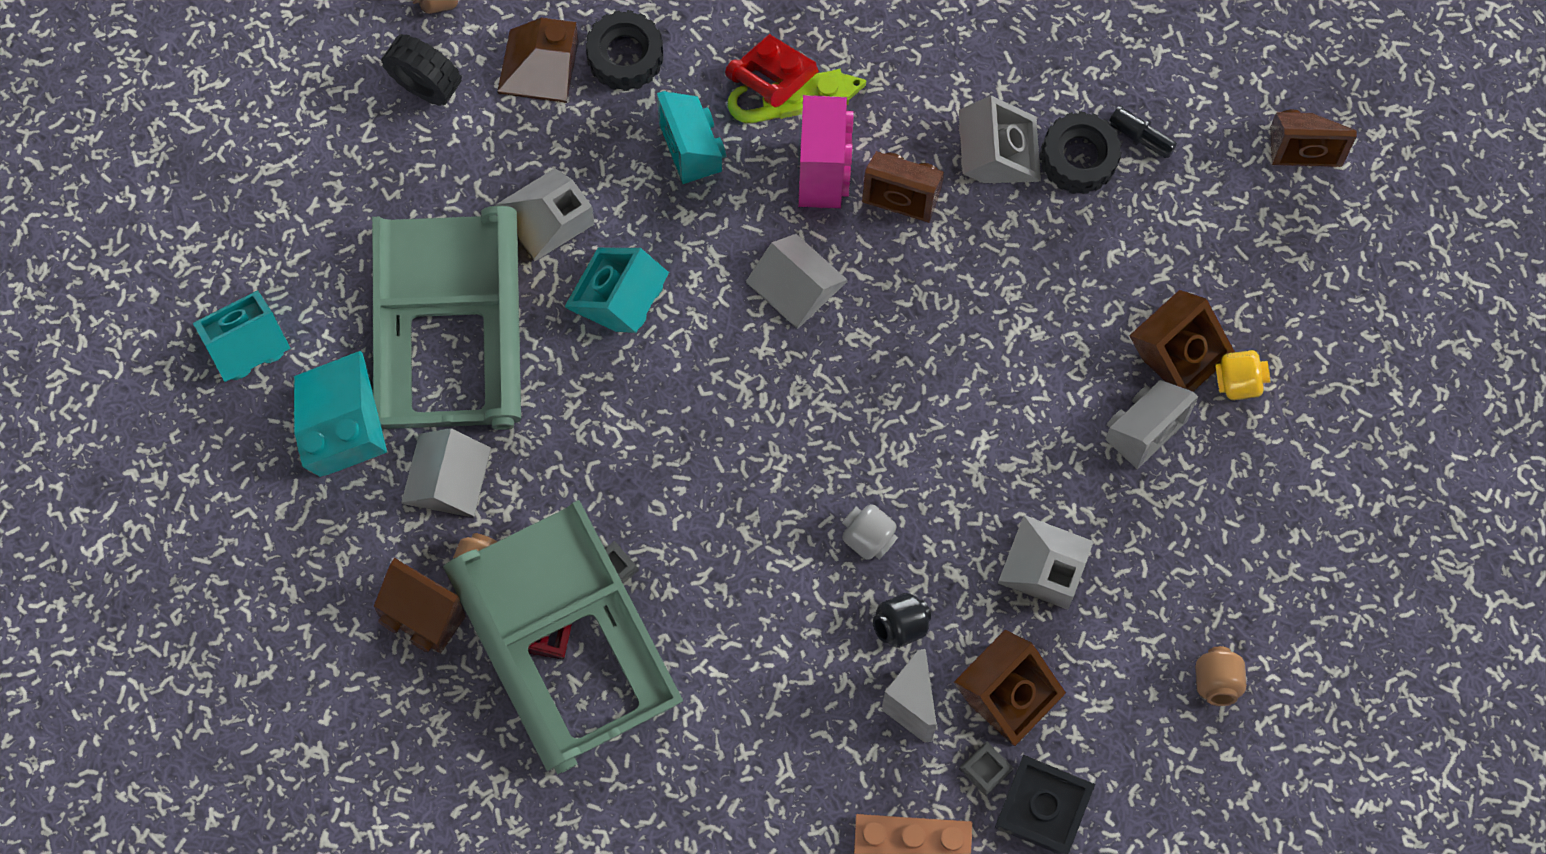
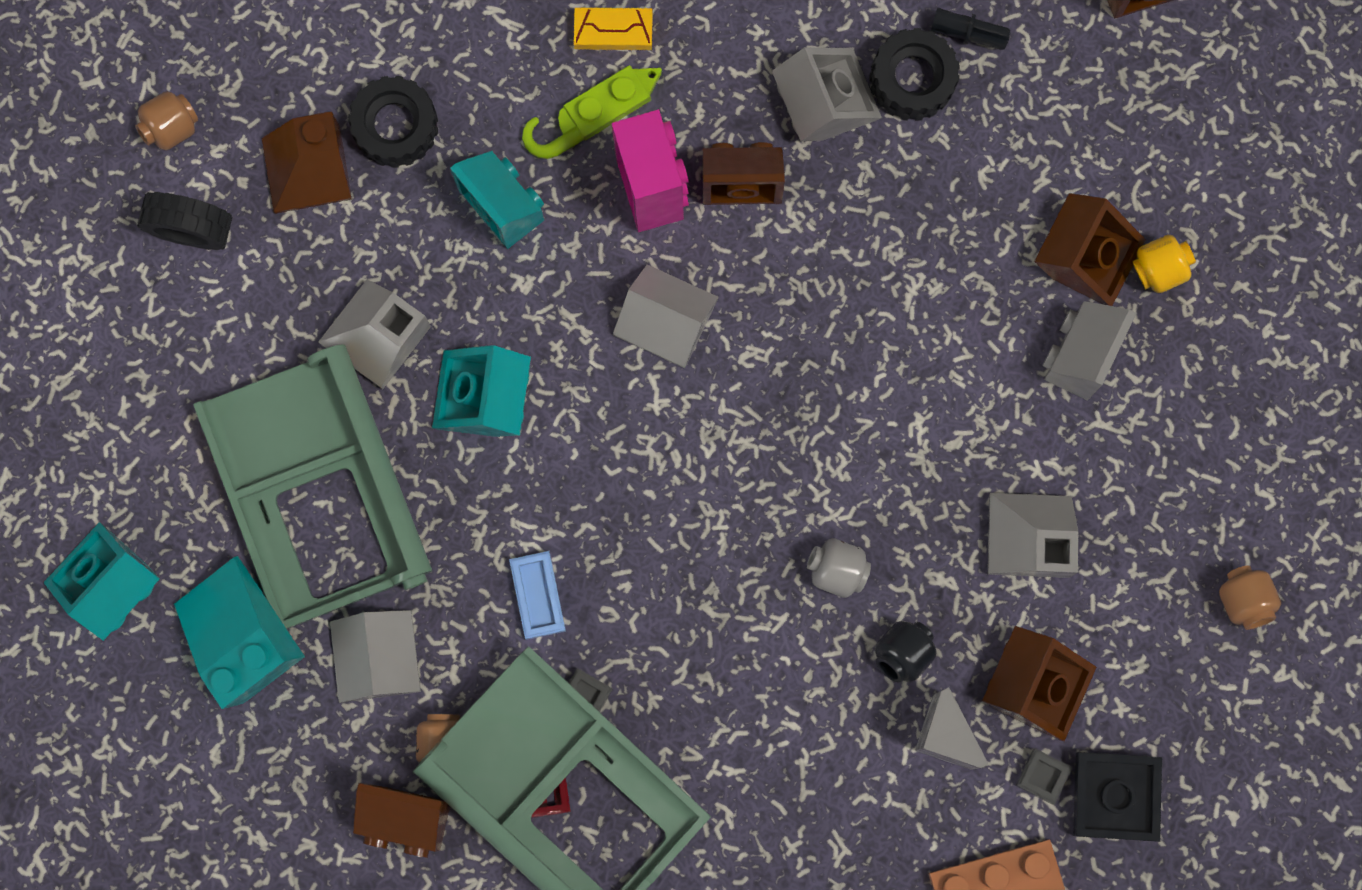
camera: 15 degrees left, 10 degrees up
(602, 471) = (537, 595): none -> light blue tile
(776, 62) = (564, 82): red plate -> none
(837, 36) = (613, 28): none -> yellow tile

